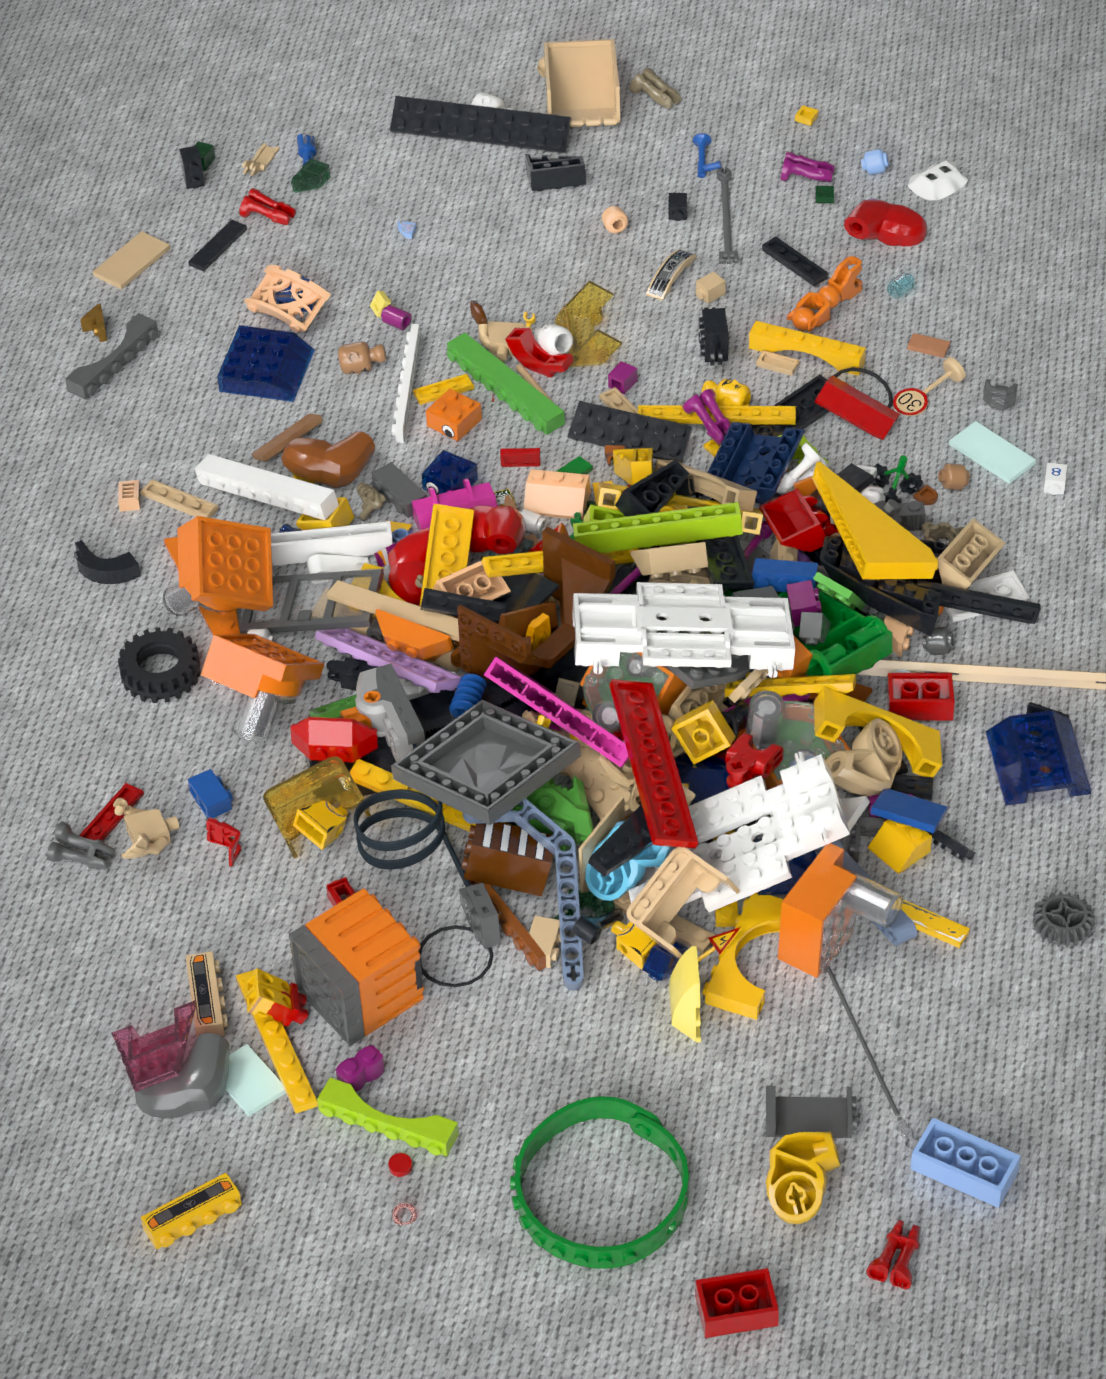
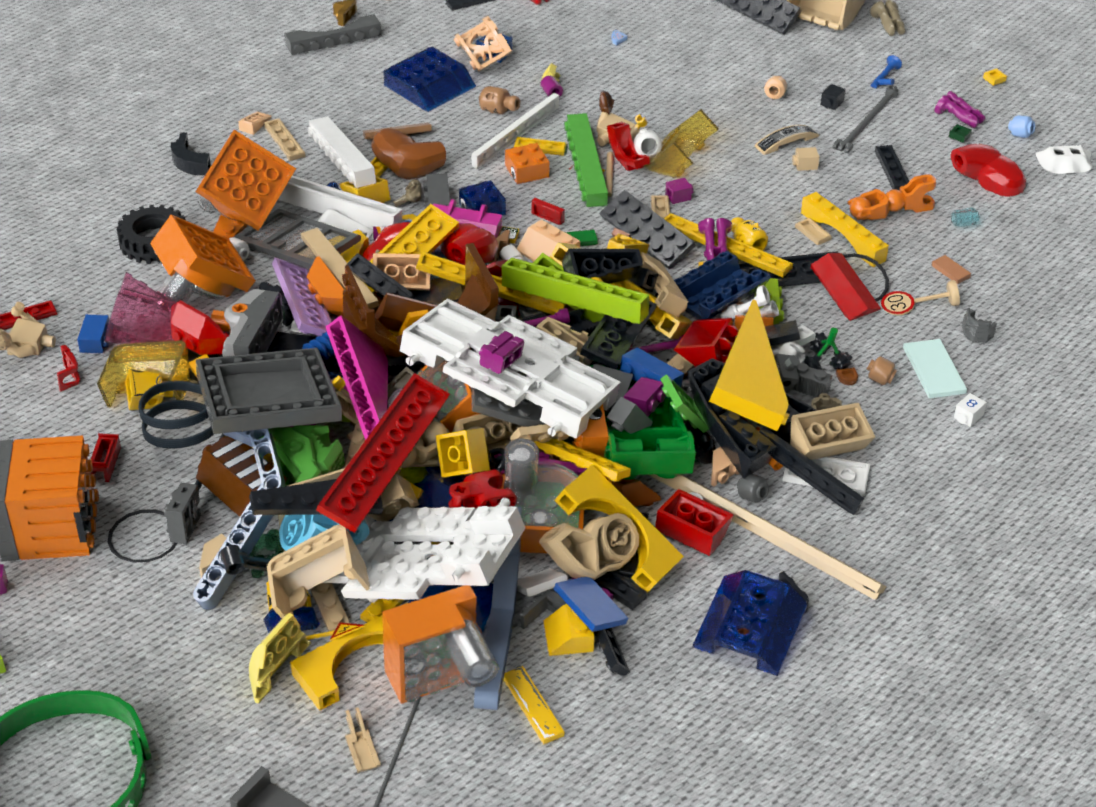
camera: 30 degrees right, 5 degrees down
(253, 753) = (139, 314): none -> clear pink wedge
(513, 927) = (202, 533): dark orange plate -> none
(554, 172) = (758, 41): black wedge -> none
(671, 559) = (563, 316): tan slope -> none
(683, 621) = (501, 352): none -> magenta brick
(713, 335) = (773, 189): black brick -> none
(815, 1026) = (361, 745): none -> tan arm
(1051, 924) = (656, 775): dark grey gear -> none

